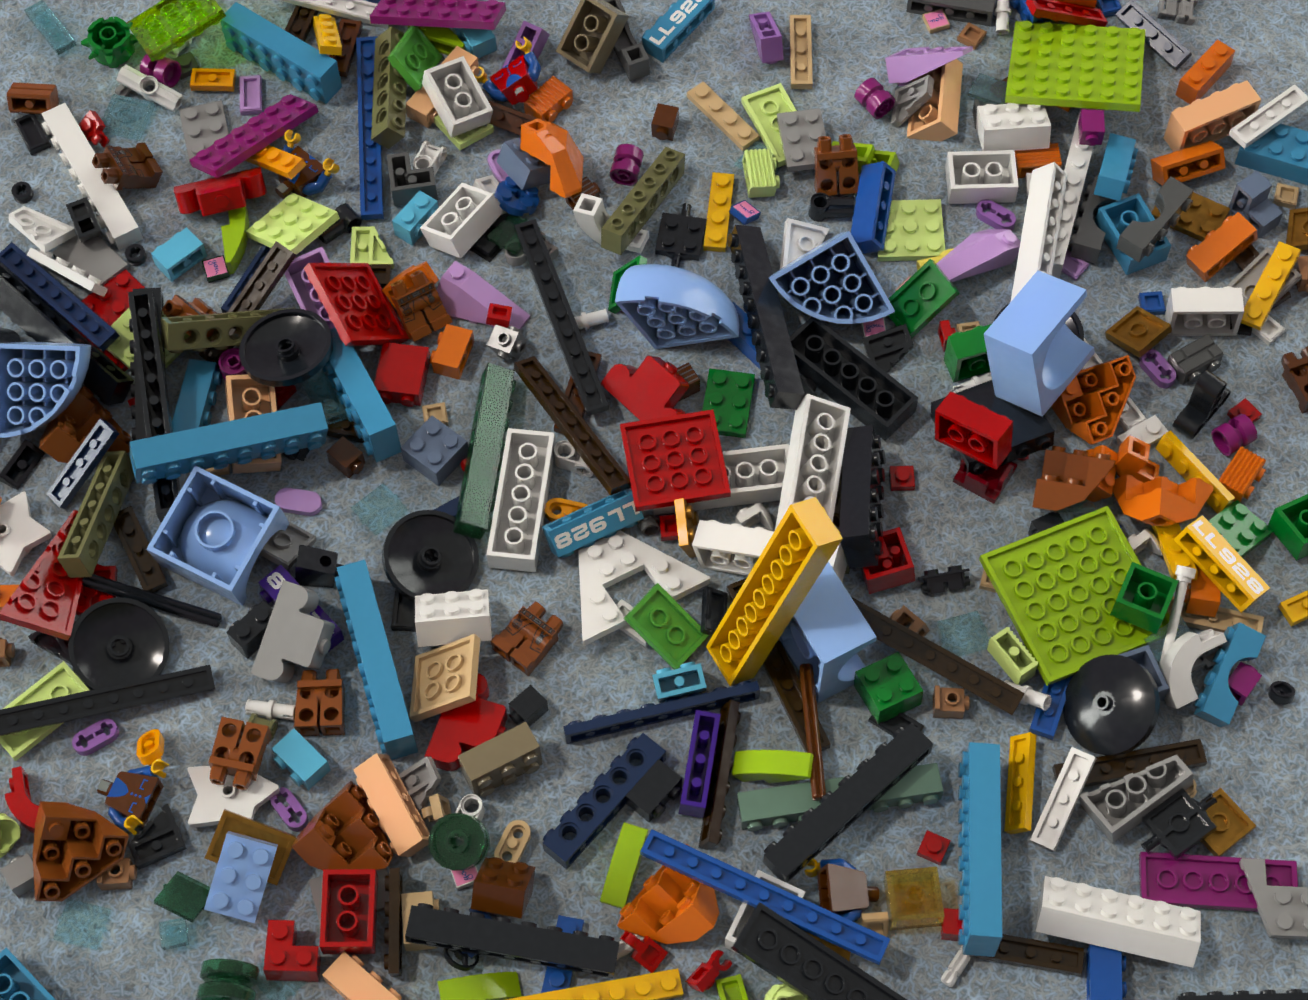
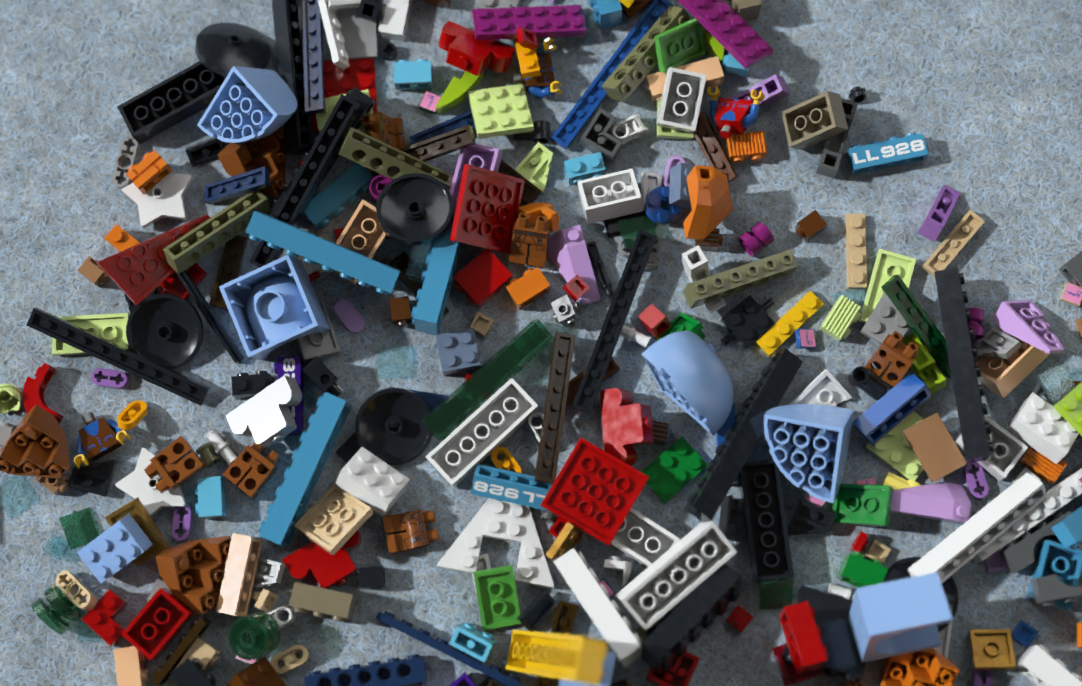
camera: 45 degrees right, 15 degrees up
(223, 948) = (82, 592): none -> tan beam
(267, 143) = (527, 38): none -> red plate
(507, 289) = (599, 268): none -> black piece
(596, 292) = (654, 321): none -> brick
(835, 122) = (918, 321): none -> dark green plate
(901, 126) = (963, 366): none -> black brick
(915, 428) = (775, 594): none -> clear green piece
(937, 212) = (934, 447): none -> medium nougat tile

